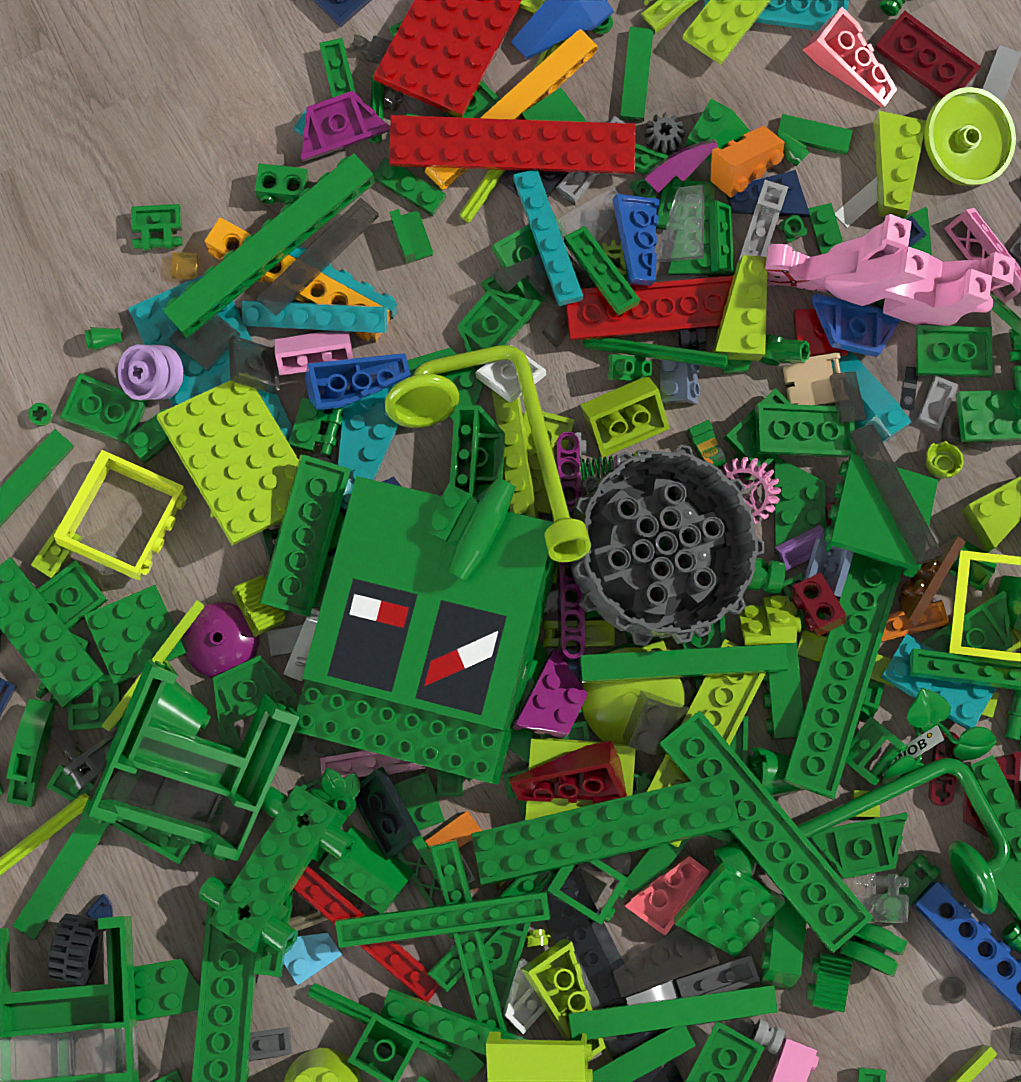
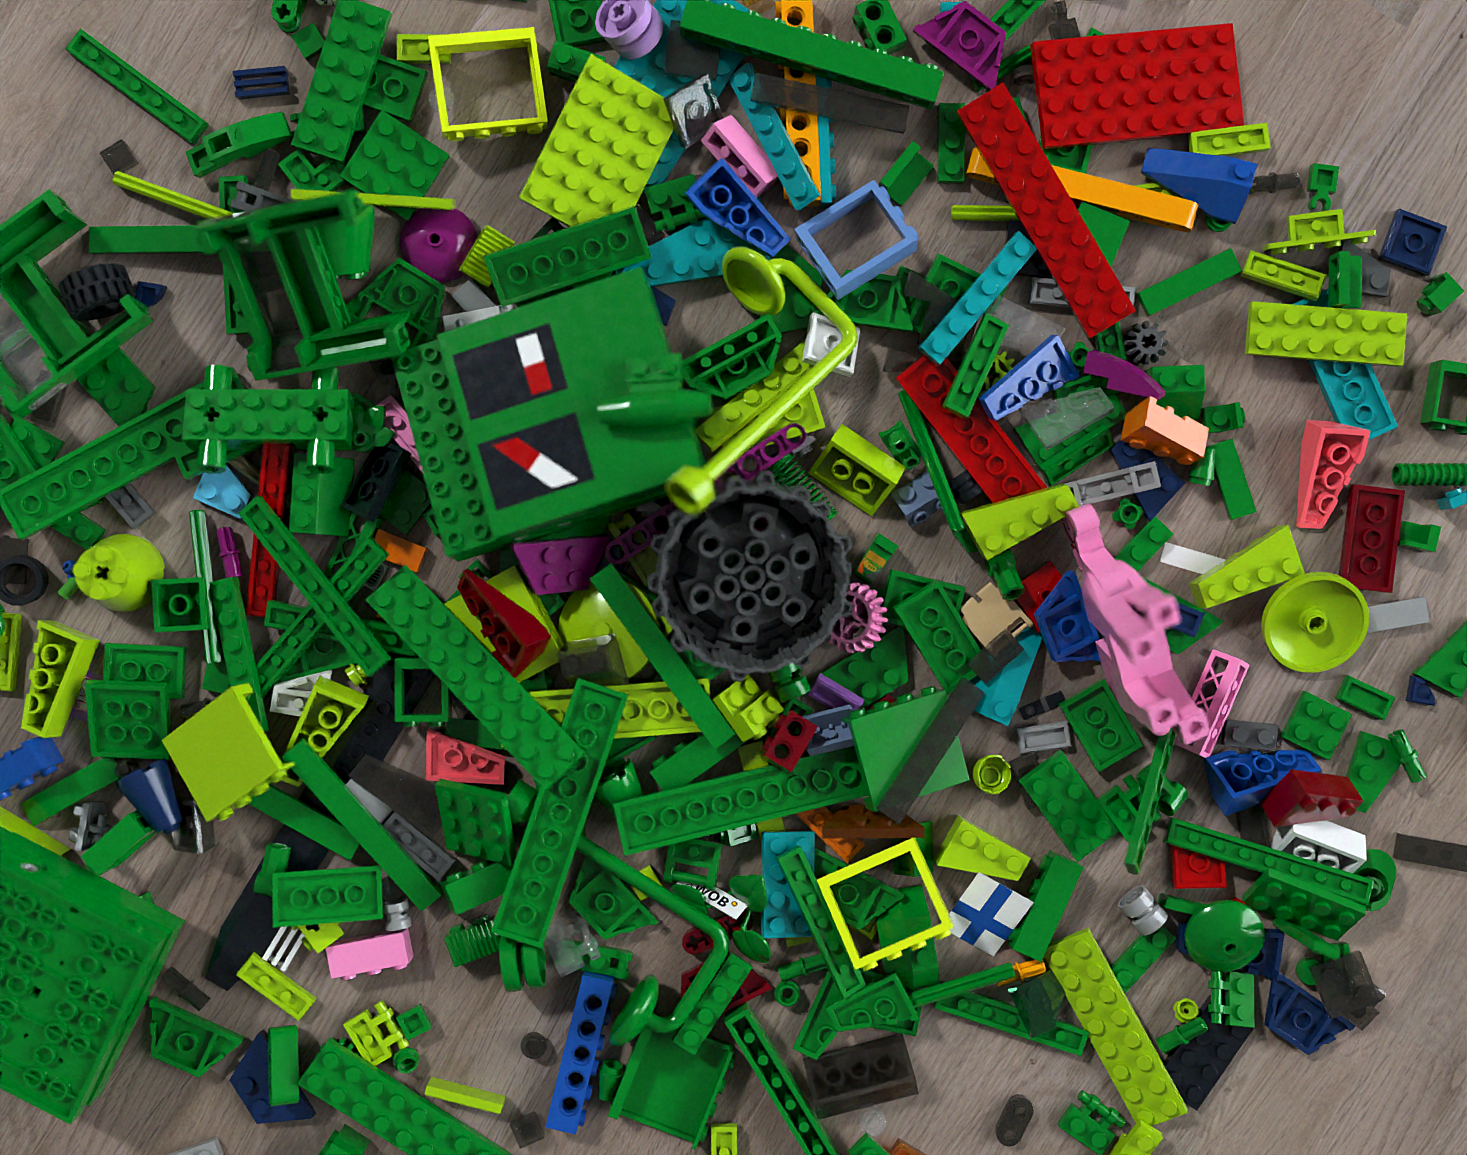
camera: 55 degrees right, 10 degrees up
(364, 983) = (229, 552): none -> magenta axle
(443, 340) = (875, 266): none -> medium blue window
(761, 110) = (1223, 417): none -> green bracket
(948, 21) = (1419, 537): none -> green panel

